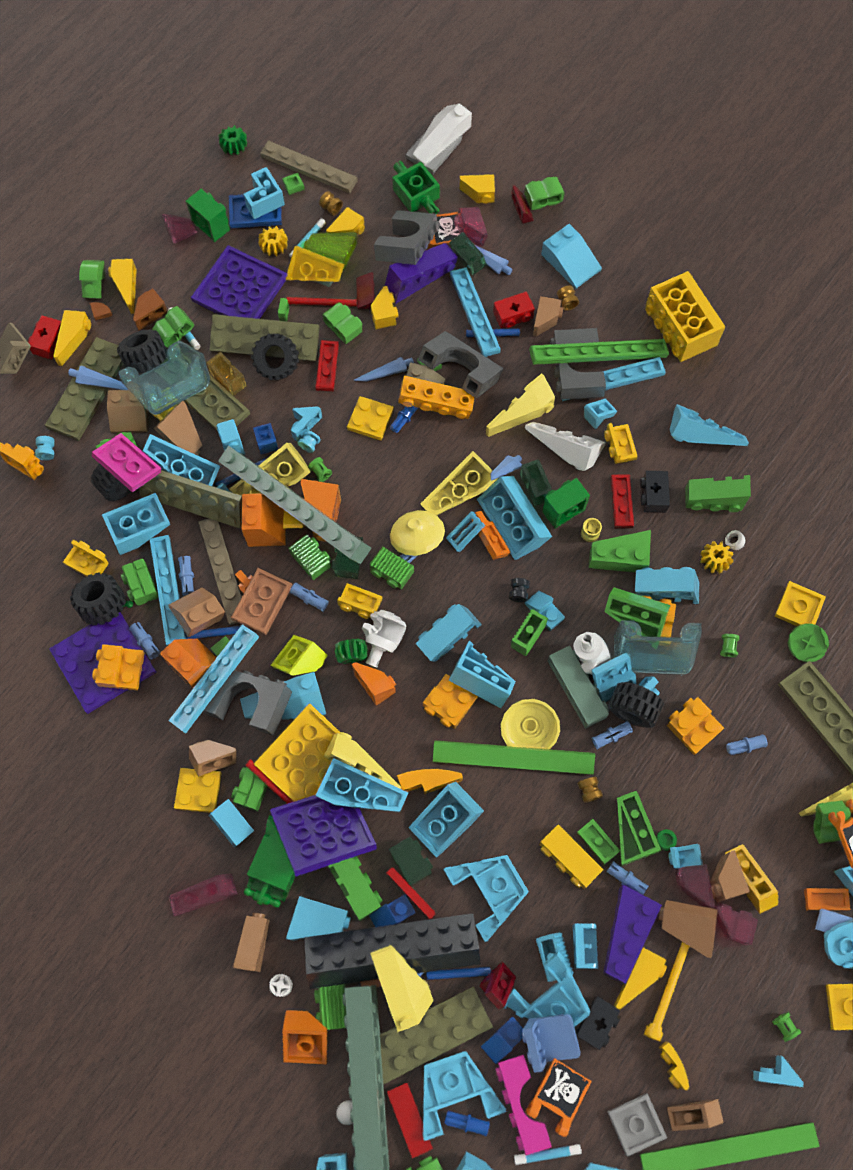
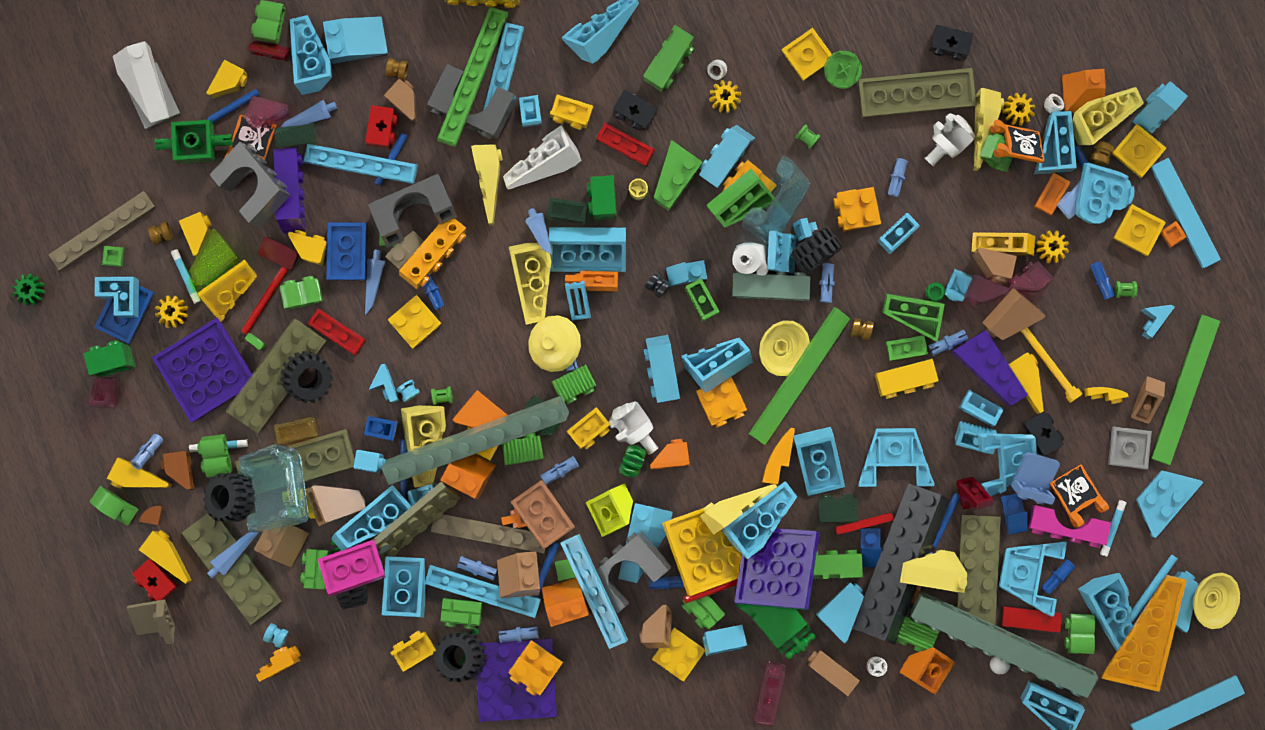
camera: 55 degrees left, 15 degrees up
(149, 277) = (146, 451): none -> medium blue pin
(256, 739) = (667, 582): none -> blue axle
(397, 338) = (346, 251): none -> blue plate
(458, 202) = (233, 106): none -> blue bar
(533, 230) = (309, 57): none -> medium azure wedge
(697, 772) = (898, 233): none -> medium azure brick
(779, 997) = (1102, 280): none -> blue axle
(780, 936) = (1059, 244): none -> yellow gear
(813, 772) = (950, 138): none -> white piece

